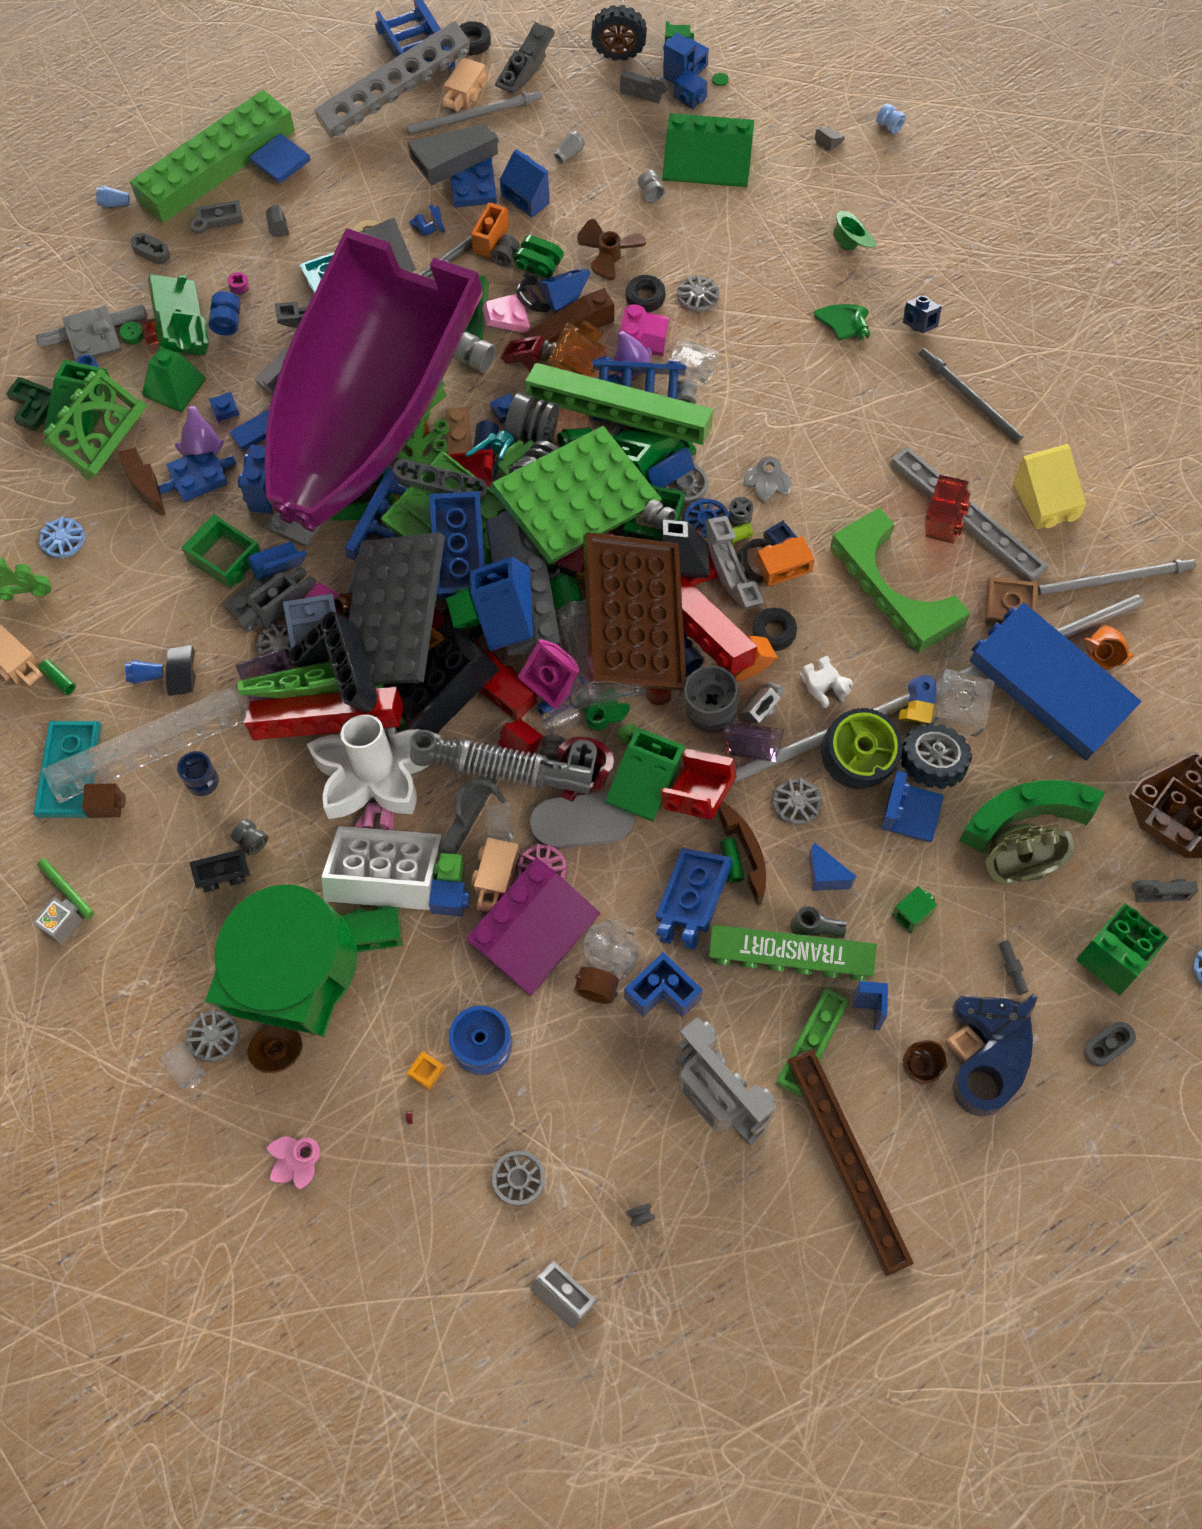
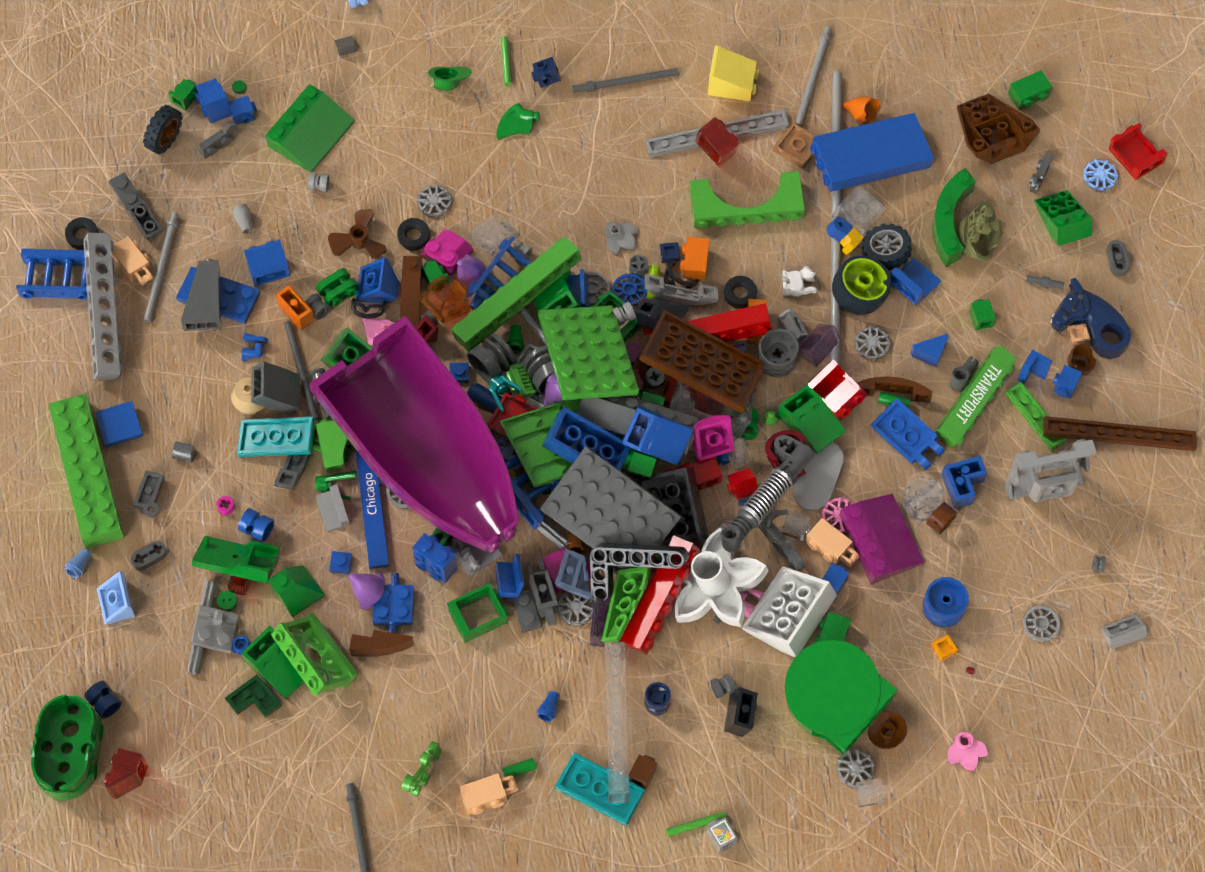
camera: 65 degrees left, 0 degrees up
(61, 537) = (394, 722): light blue wheel -> none
(90, 246) = (115, 599): none -> light blue slope
(179, 670) = (563, 680): black slope -> none
(440, 475) = (527, 435): dark grey beam -> none
(449, 868) = (816, 567): bright green brick -> none
(550, 746) = (759, 467): dark grey wheel -> none
(610, 326) = (432, 271): none -> green brick
(882, 1057) = (1066, 381): none -> blue brick
(920, 274) = (506, 61): none -> bright green bar

